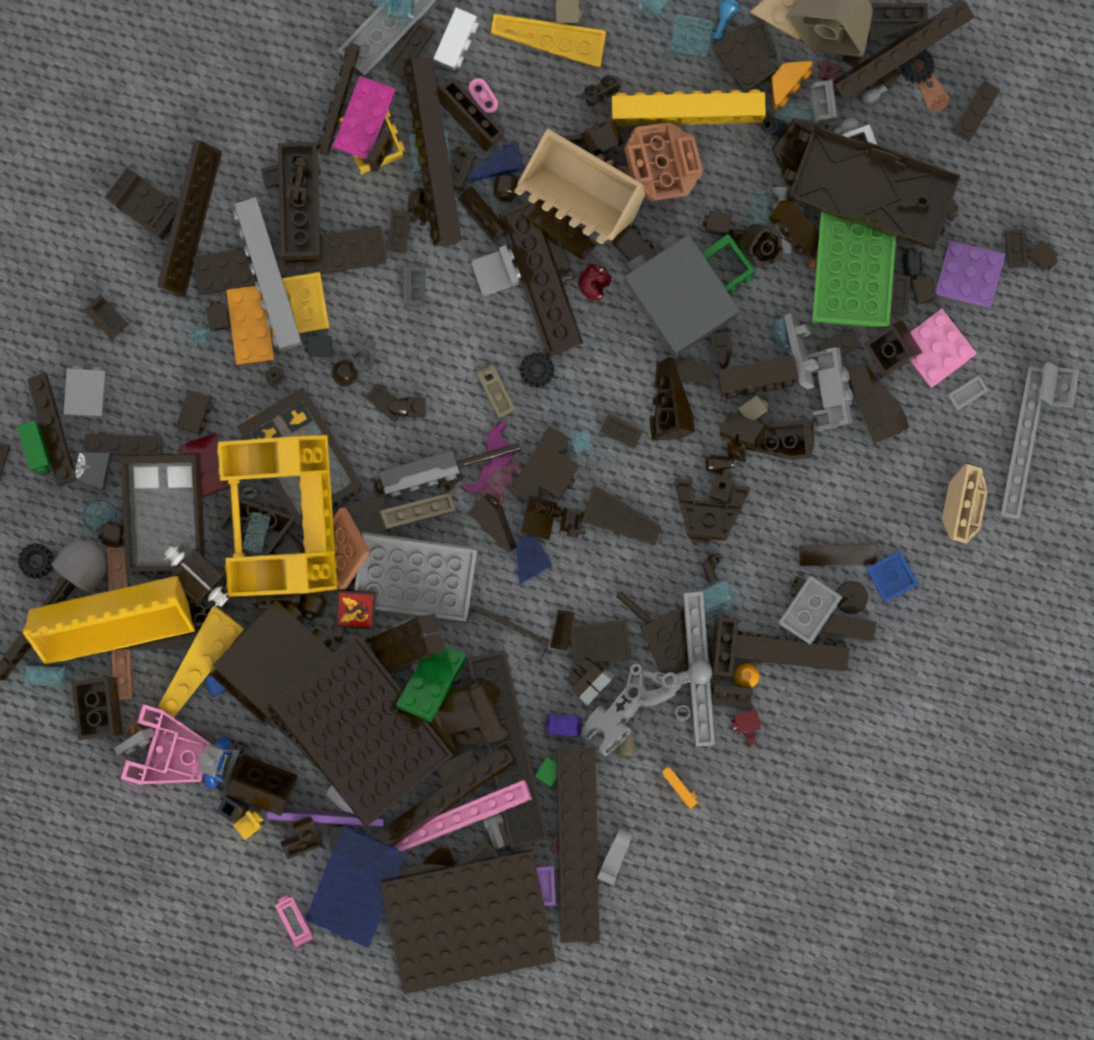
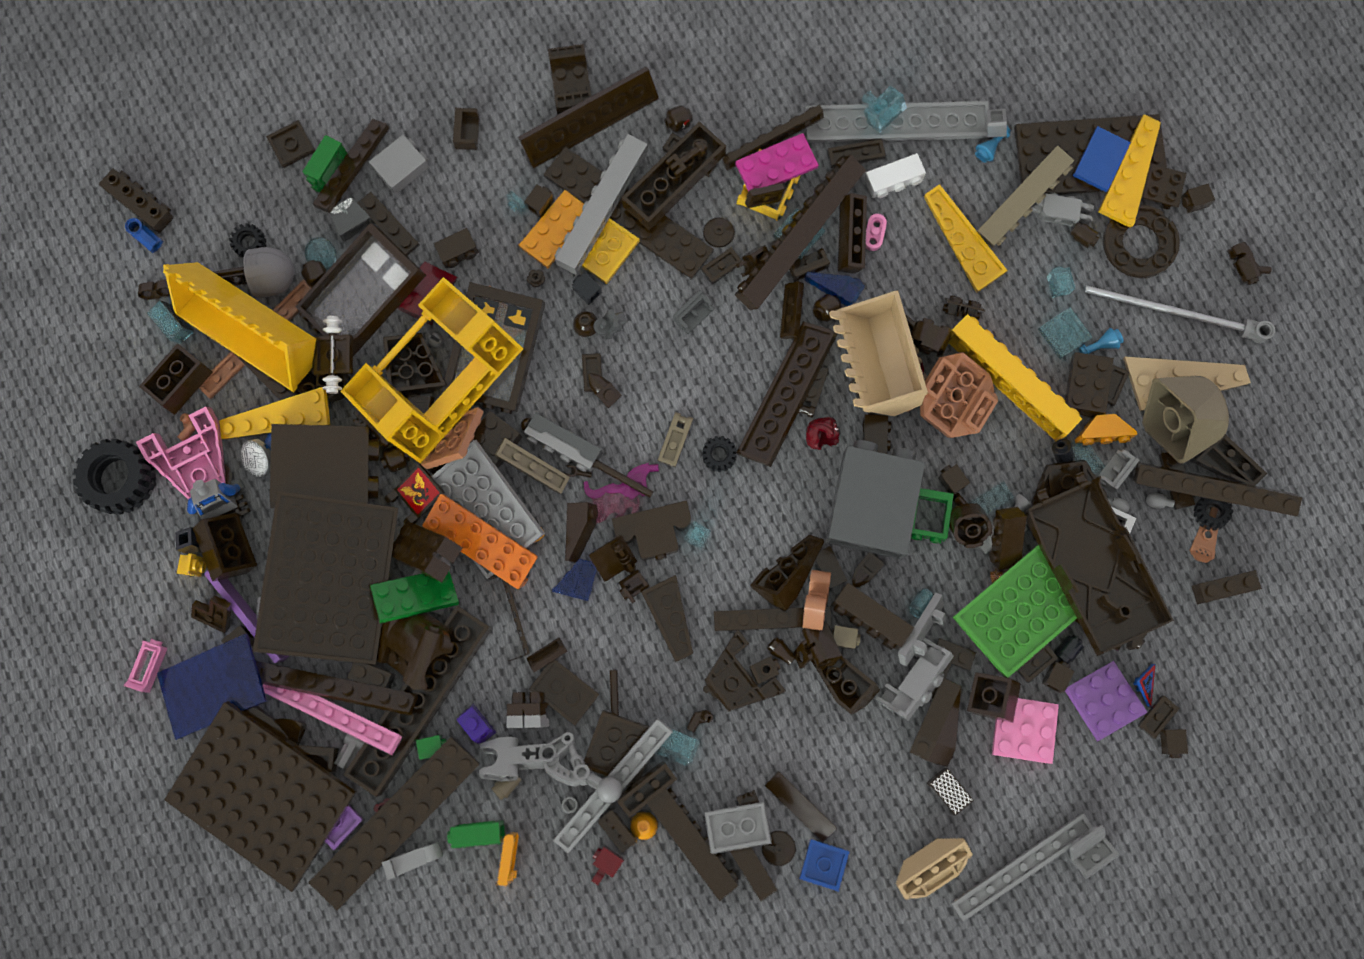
camera: 45 degrees right, 5 degrees down
(139, 739) = (178, 428): light grey plate -> none
(155, 819) = (94, 463): none -> black tyre
(215, 704) = (256, 457): none -> tile
(254, 153) = (678, 118): none -> dark brown head
(256, 532) = (406, 368): clear light blue tile -> none
(370, 208) = (718, 232): none -> dark brown piece
(438, 597) = (481, 541): none -> orange bracket
(496, 271) = (761, 358): light grey bracket -> none
(559, 229) = (834, 371): dark brown wing -> none
(621, 431) = (734, 556): dark brown plate -> none
(641, 794) = (476, 834): none -> green window
(689, 448) = (762, 619): none -> dark brown plate
(709, 403) = (816, 600): none -> nougat beam
(828, 75) = (1136, 450): dark red plate -> none
(926, 441) = (950, 791): none -> panel
(967, 393) = (1016, 786): light grey tile -> none
(986, 234) = (1146, 683): none -> piece

